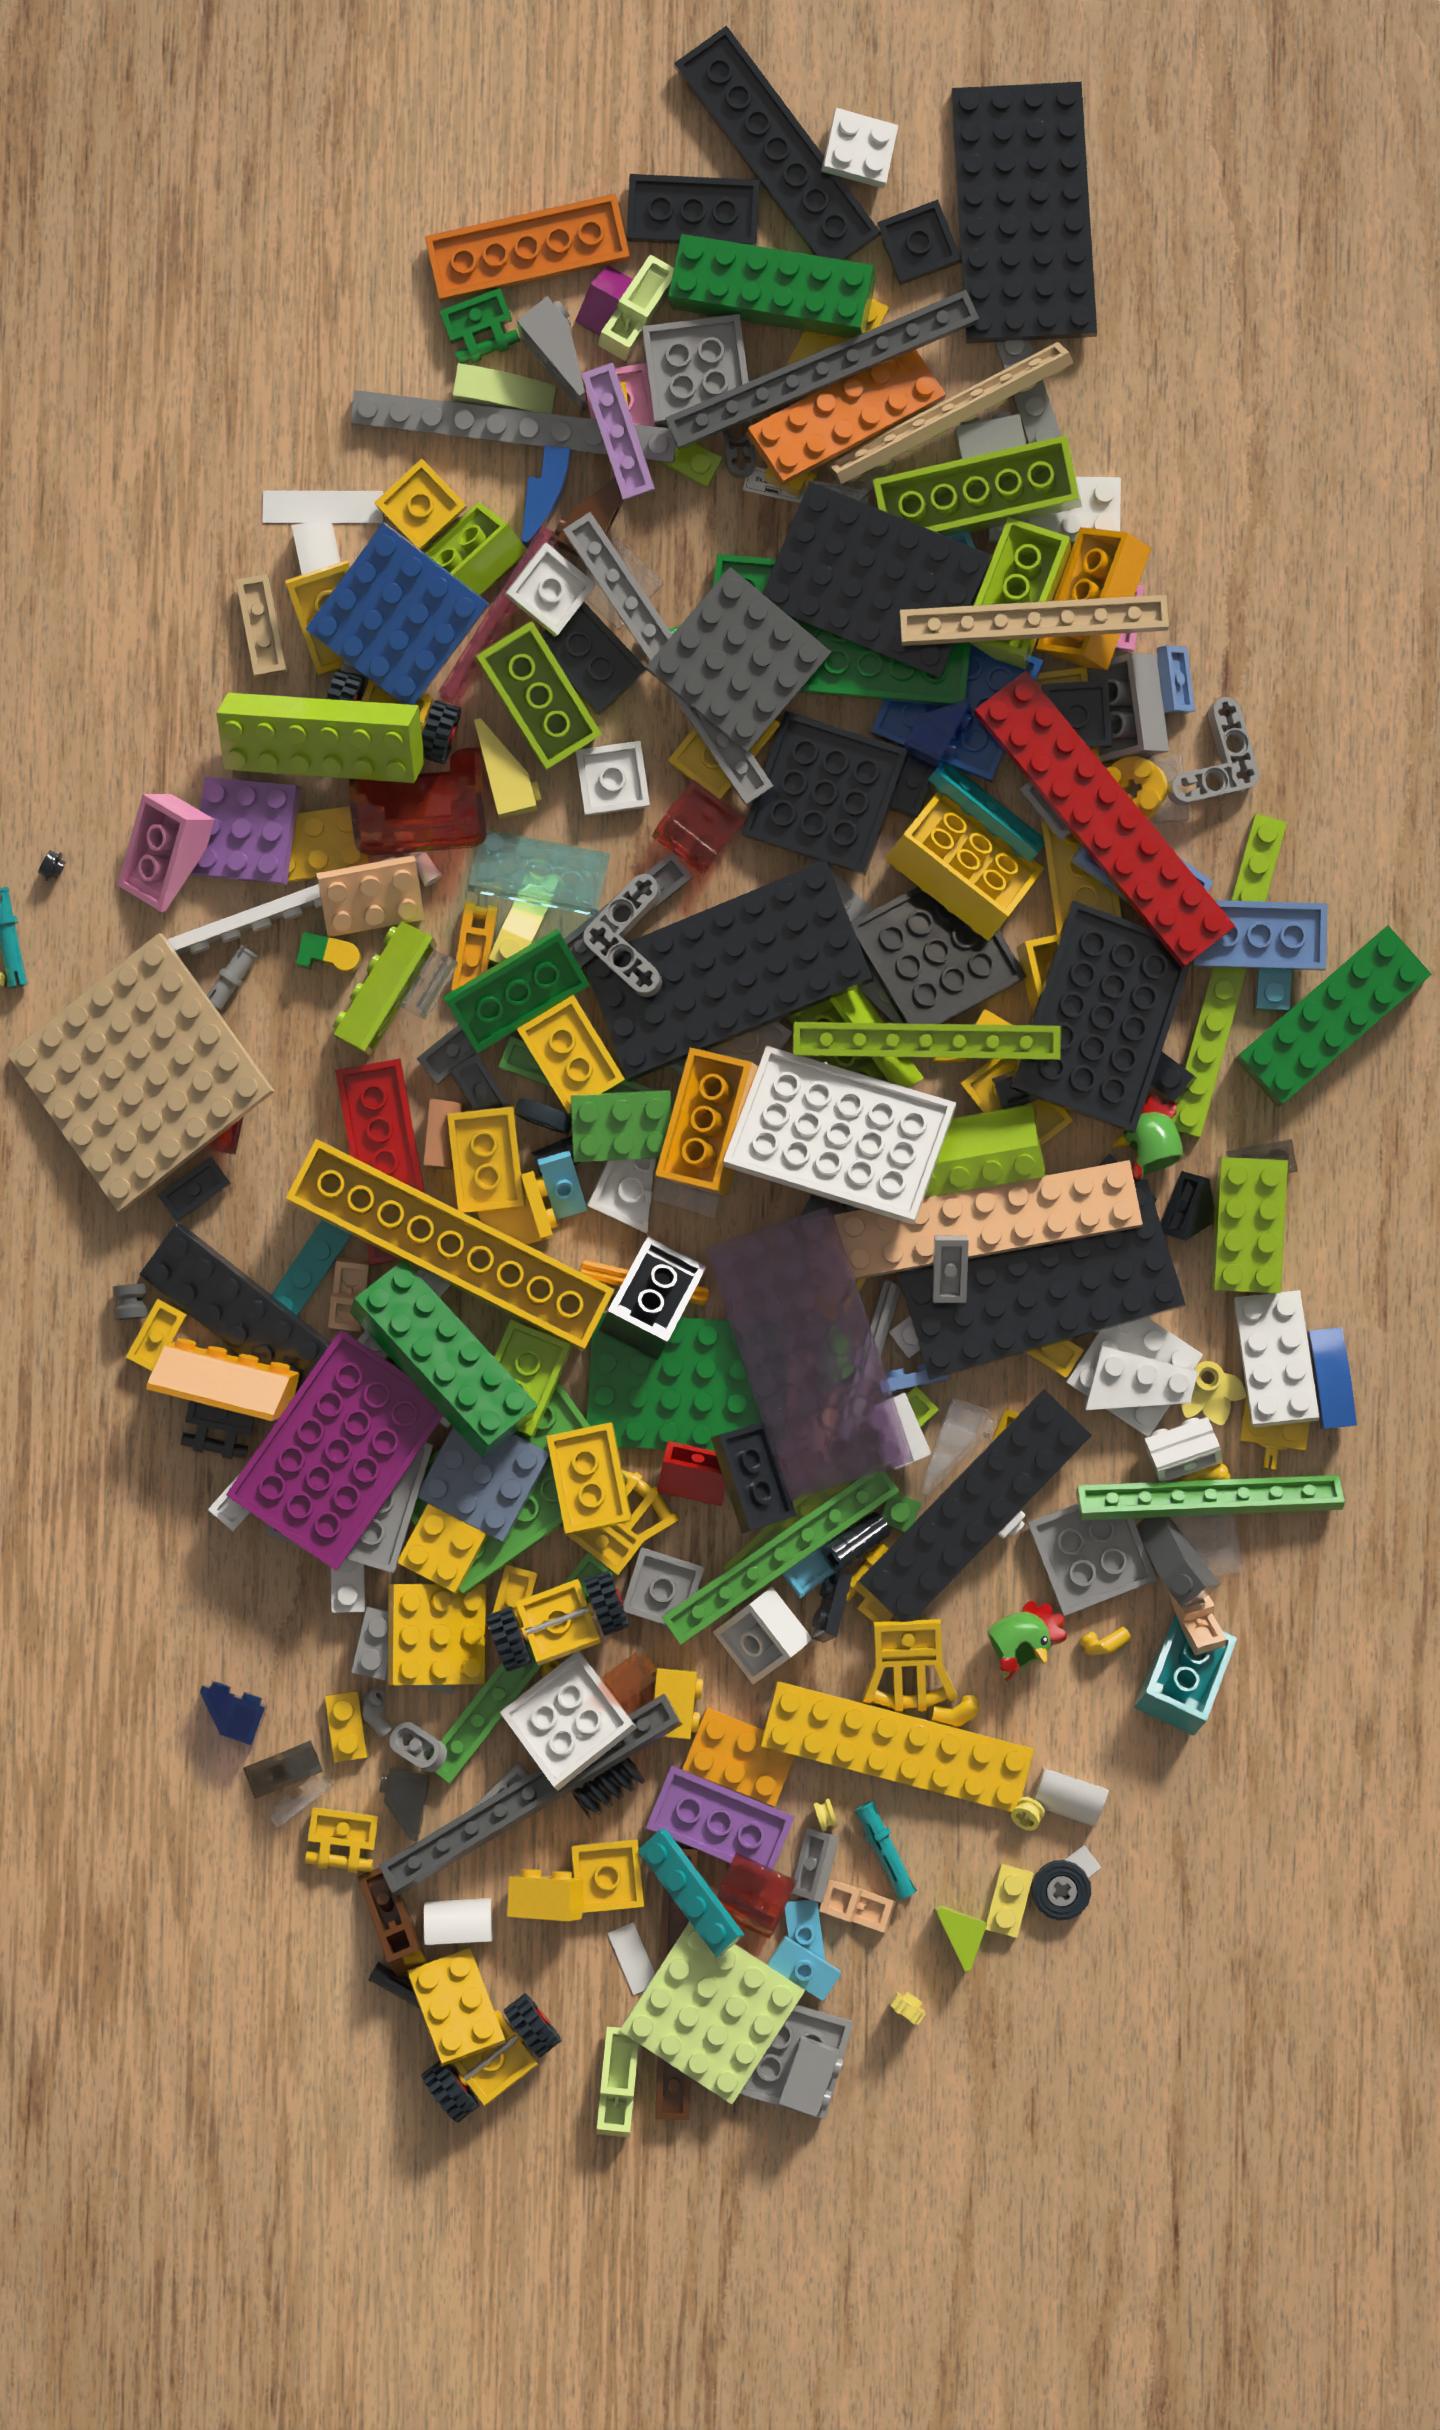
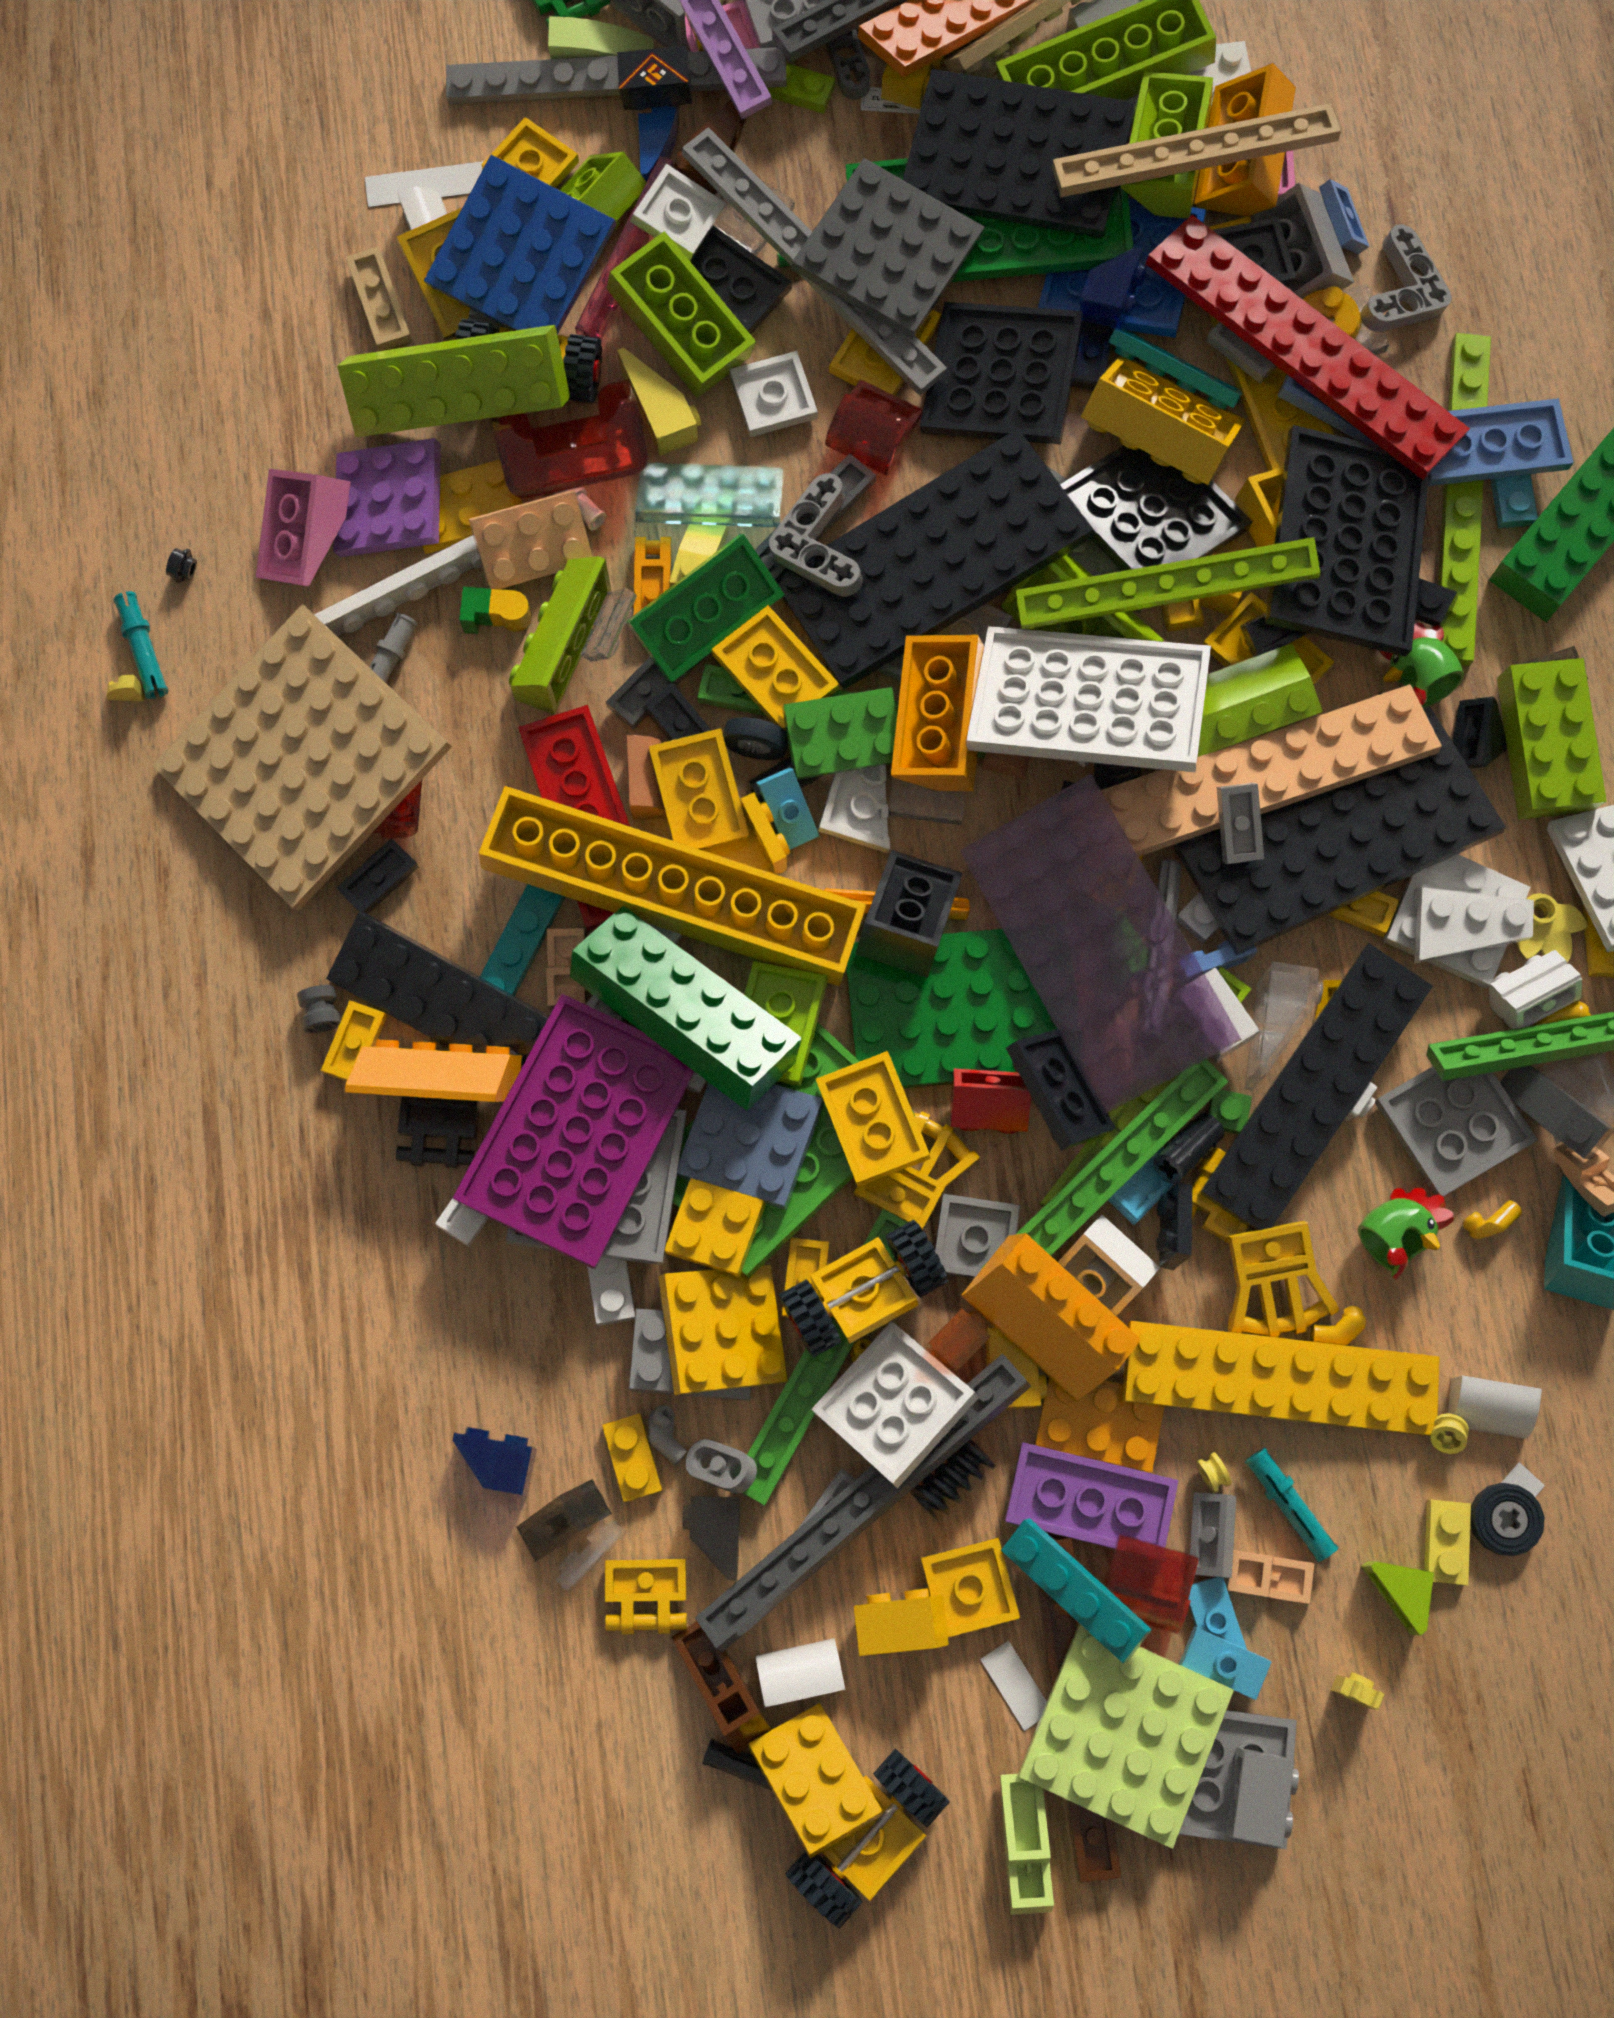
camera: 10 degrees left, 10 degrees down
(547, 451) = (654, 78): none -> black brick
(708, 1669) = (1050, 1316): none -> light orange slope

